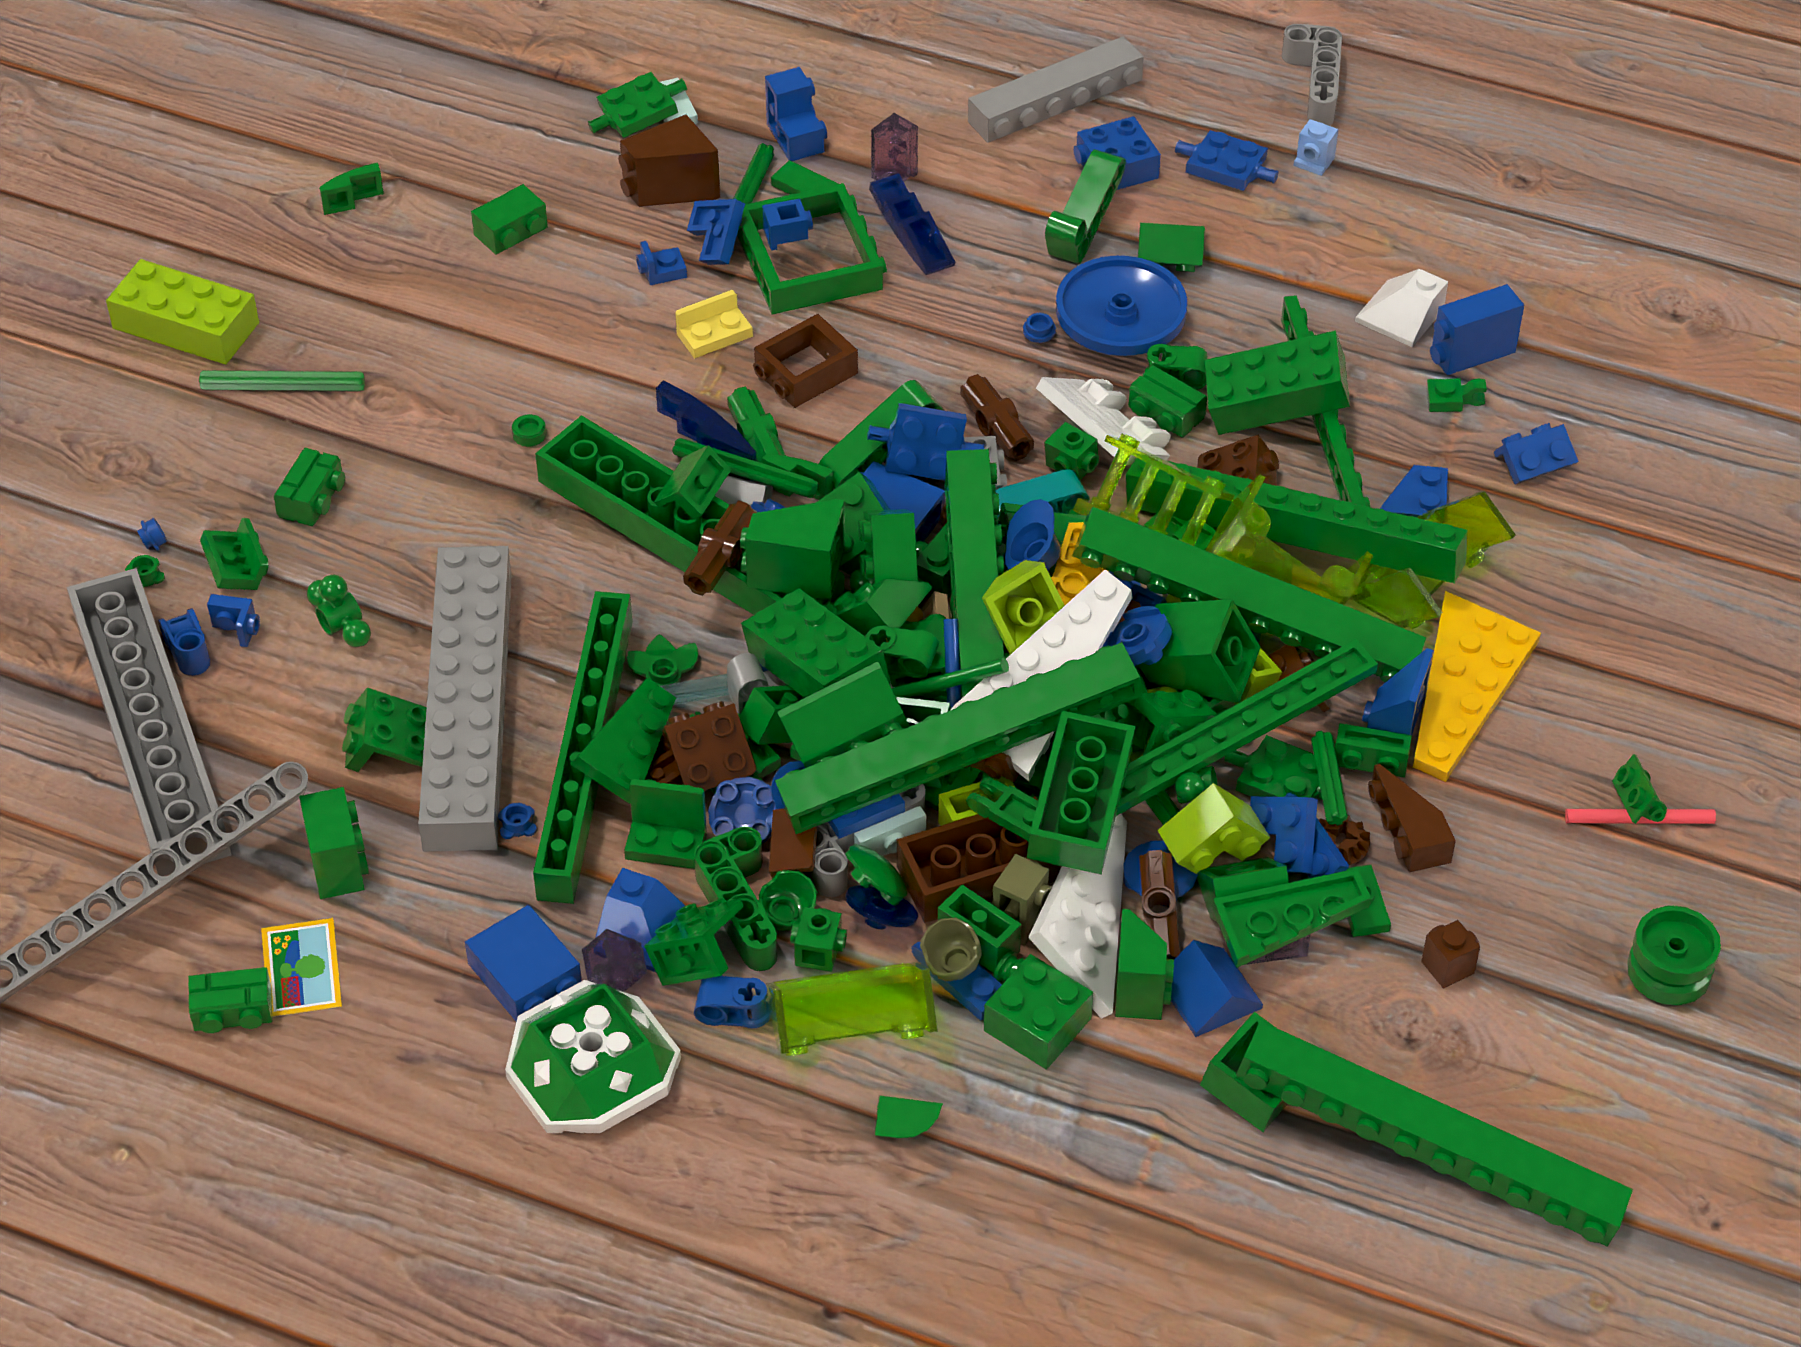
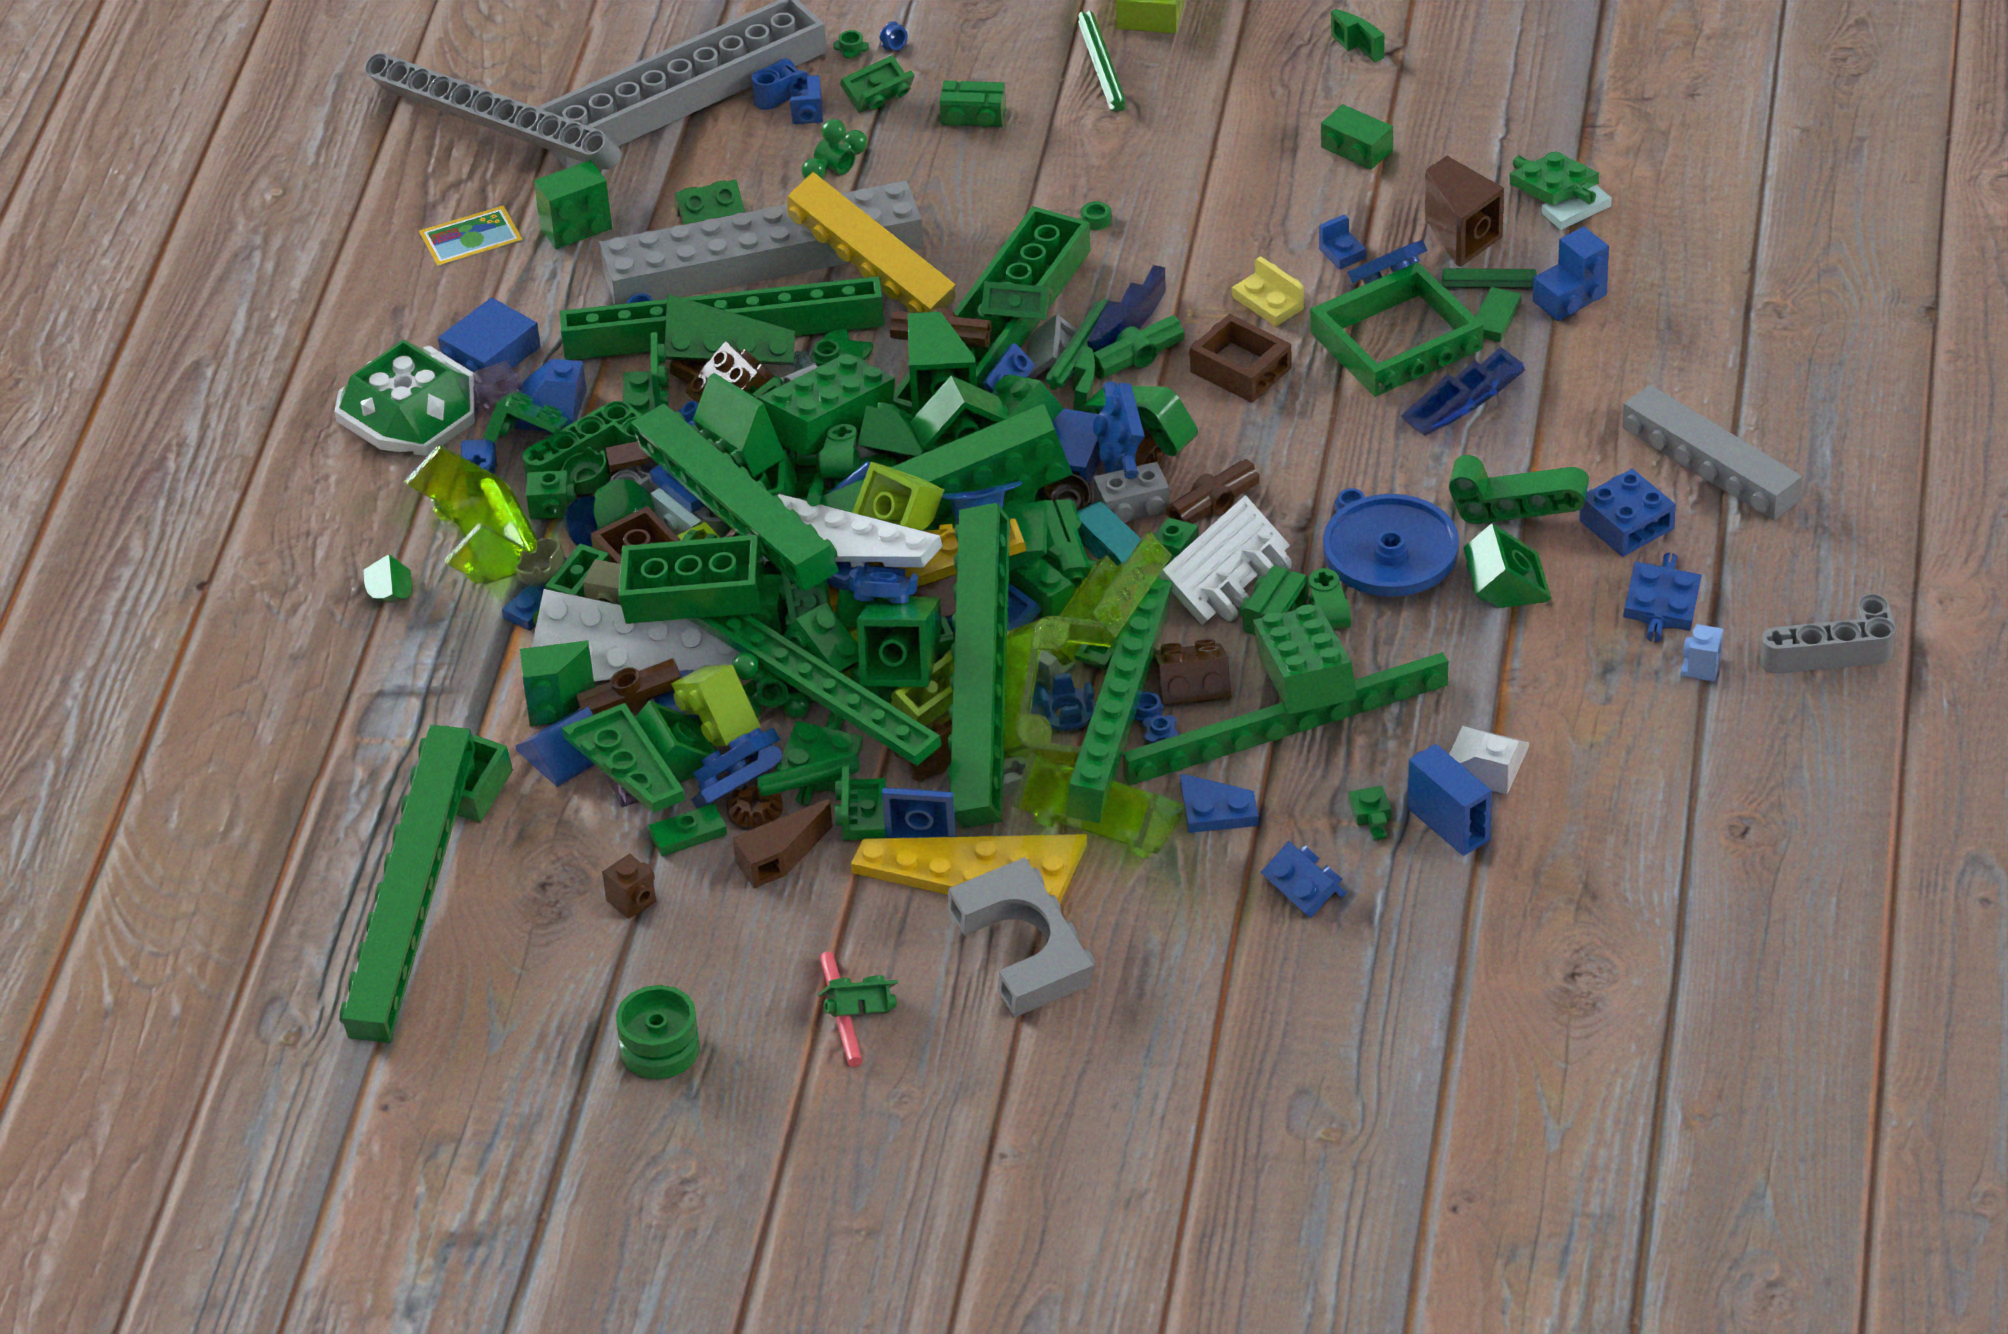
camera: 80 degrees right, 5 degrees down
(230, 999) = (418, 200): green brick -> none
(543, 590) = (869, 246): none -> yellow brick
(786, 222) = (1397, 298): blue brick -> none
(894, 148) = (1548, 348): hinge -> none
(1038, 1011) = (496, 635): green brick -> none
(1620, 632) = (1020, 894): none -> light grey arch

